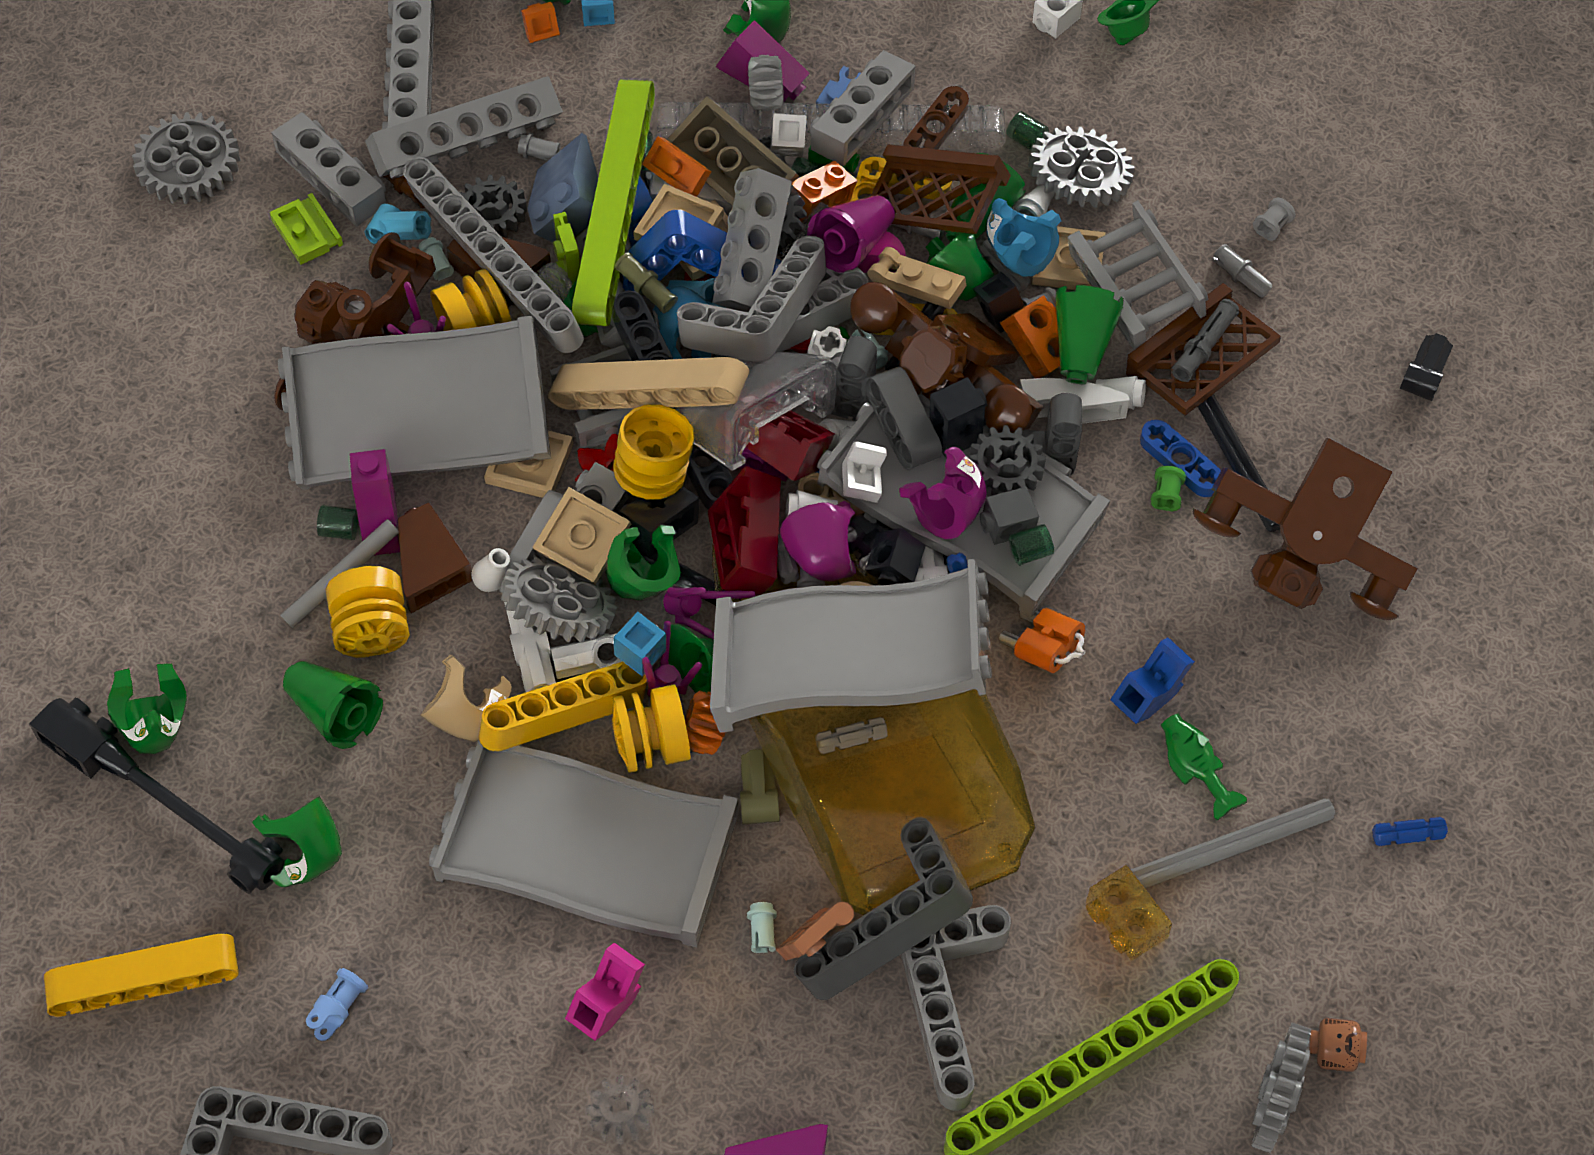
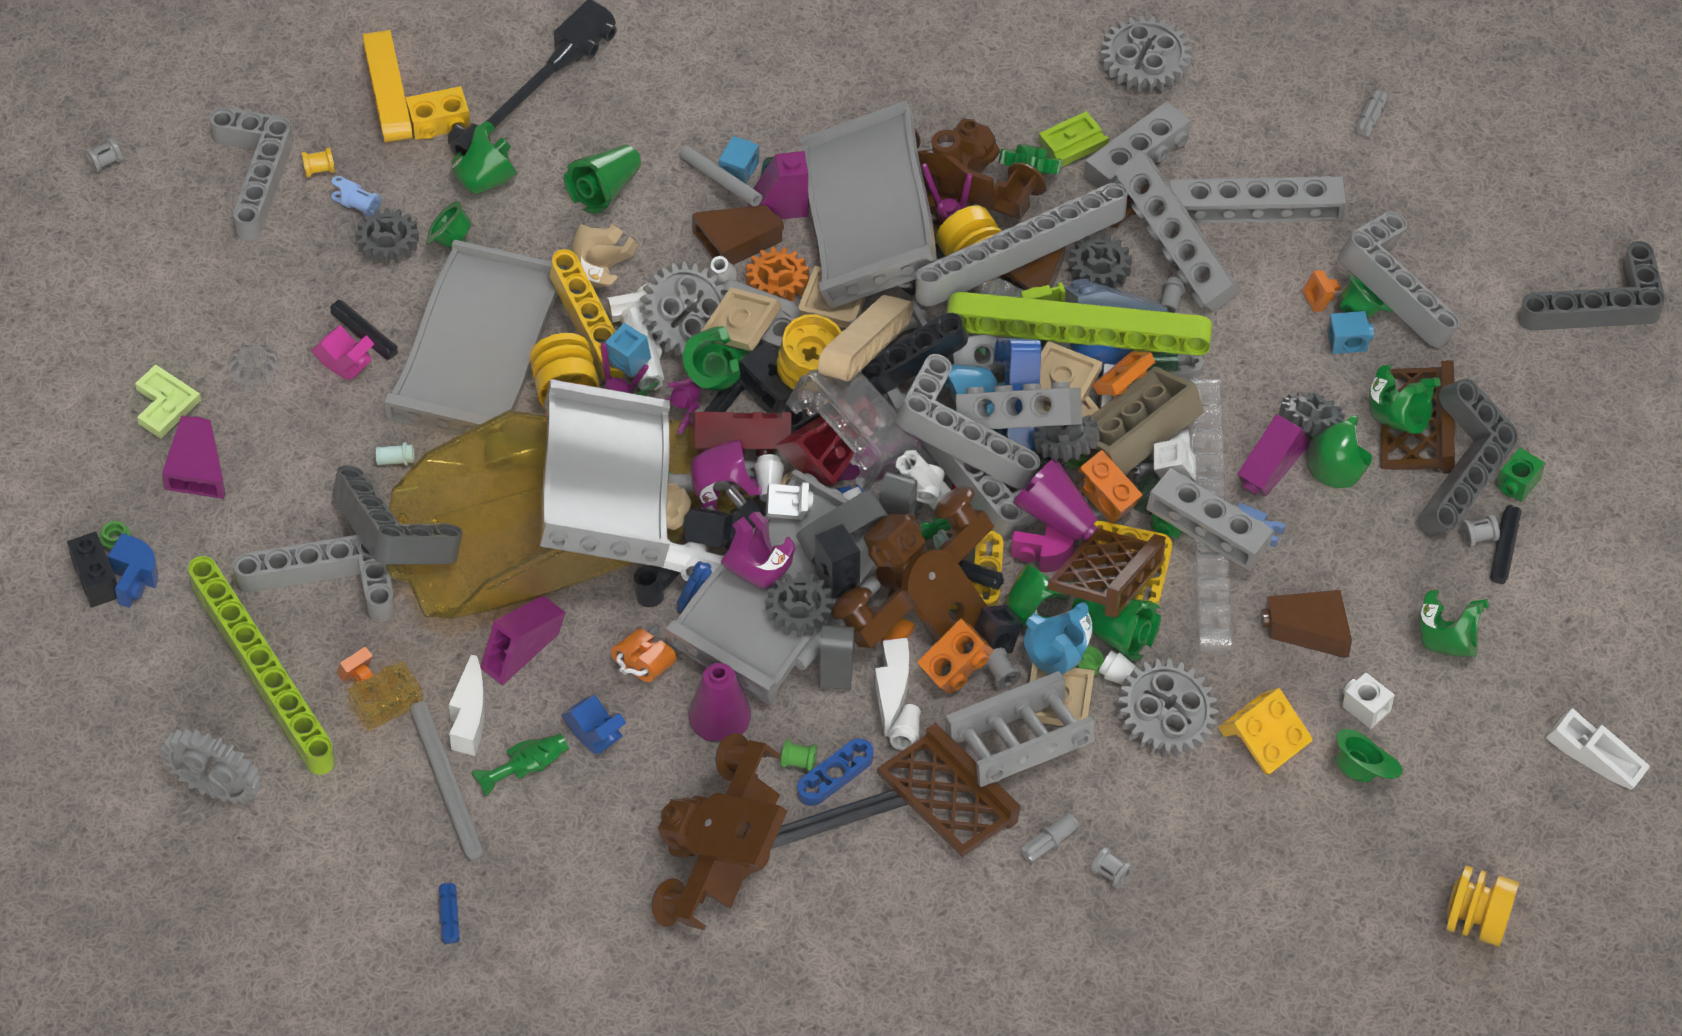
camera: 90 degrees right, 5 degrees down
(148, 722) = (594, 67): green piece -> none
(193, 908) = (437, 112): none -> yellow brick
(270, 1055) = (318, 162): none -> yellow bush
(311, 555) = (740, 158): none -> dark azure brick
(348, 257) = (1033, 156): none -> green gear
(367, 611) = (677, 189): yellow wheel -> none
(403, 879) = (449, 225): none -> green piece
(407, 224) = (1073, 188): medium azure piece -> none
(409, 940) = (387, 236): none -> dark grey gear
(486, 505) = (778, 273): none -> orange gear
(557, 980) = (362, 327): none -> black axle
(646, 282) = (981, 342): olive pin -> none
(708, 32) = (1310, 412): none -> dark grey gear
(765, 82) = (1229, 440): light grey gear -> none
(809, 936) = (369, 468): nougat plate -> none
(917, 278) = (1009, 555): tan plate -> none
(937, 112) = (1203, 592): reddish brown beam -> none
(965, 46) = (1309, 621): none -> reddish brown slope
(1008, 514) = (743, 604): dark grey brick -> none
(1025, 129) = (1213, 667): clear green piece -> none
(1031, 544) = (715, 619): clear green piece -> none
(1047, 767) = (520, 637): none -> magenta slope
(1085, 329) = (946, 673): green cone -> none
(1087, 949) = (356, 666): none -> orange tile
(1090, 91) = (1268, 729): none -> yellow bracket
(1115, 560) = (719, 704): none -> magenta cone
(1136, 818) = (468, 710): none -> white slope
(1199, 349) = (939, 776): dark grey pin -> none
(1339, 1044) = (256, 832): nougat head -> none
(1426, 371) = (927, 976): black piece -> none

